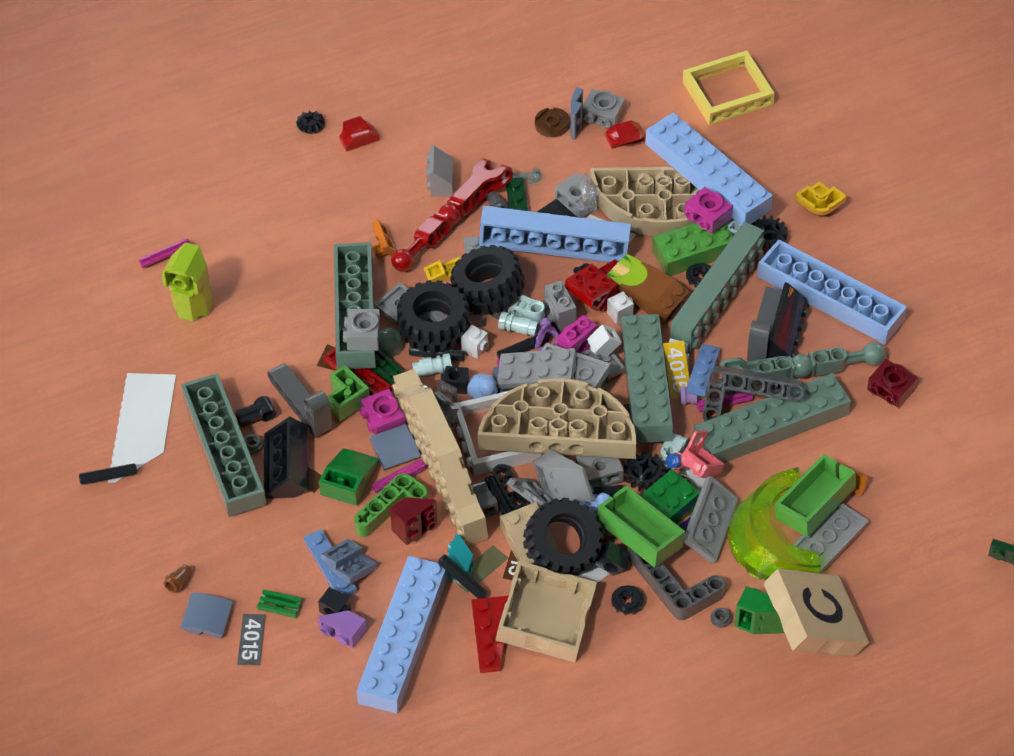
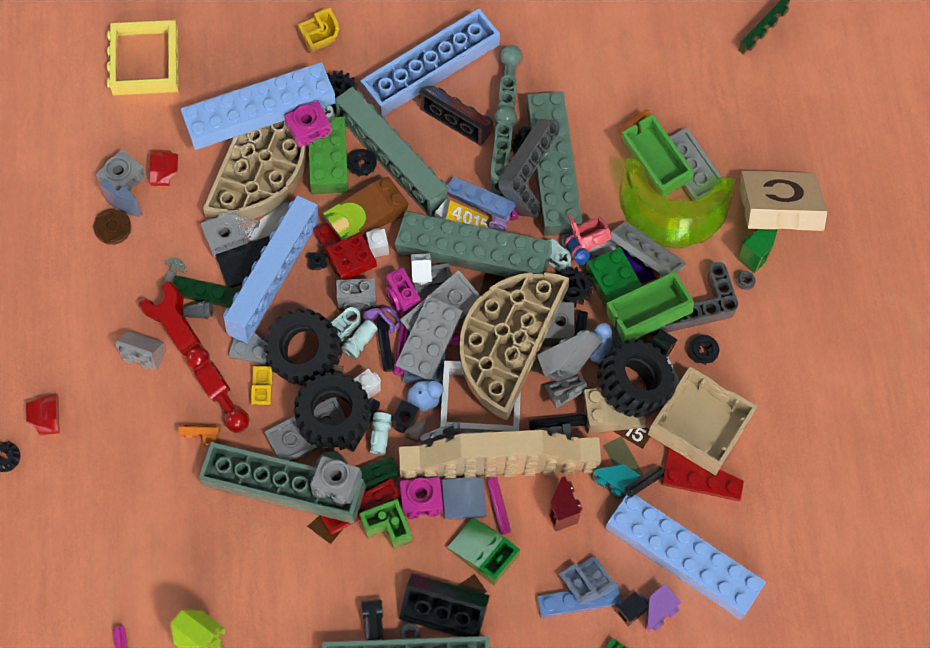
camera: 75 degrees left, 15 degrees up
(311, 410) = (378, 570): dark grey beam -> none
(368, 520) = (534, 527): bright green beam -> none
(510, 496) = (534, 404): black beam -> none
(761, 328) = (465, 141): dark grey beam -> none
(892, 383) = (543, 63): dark red brick -> none

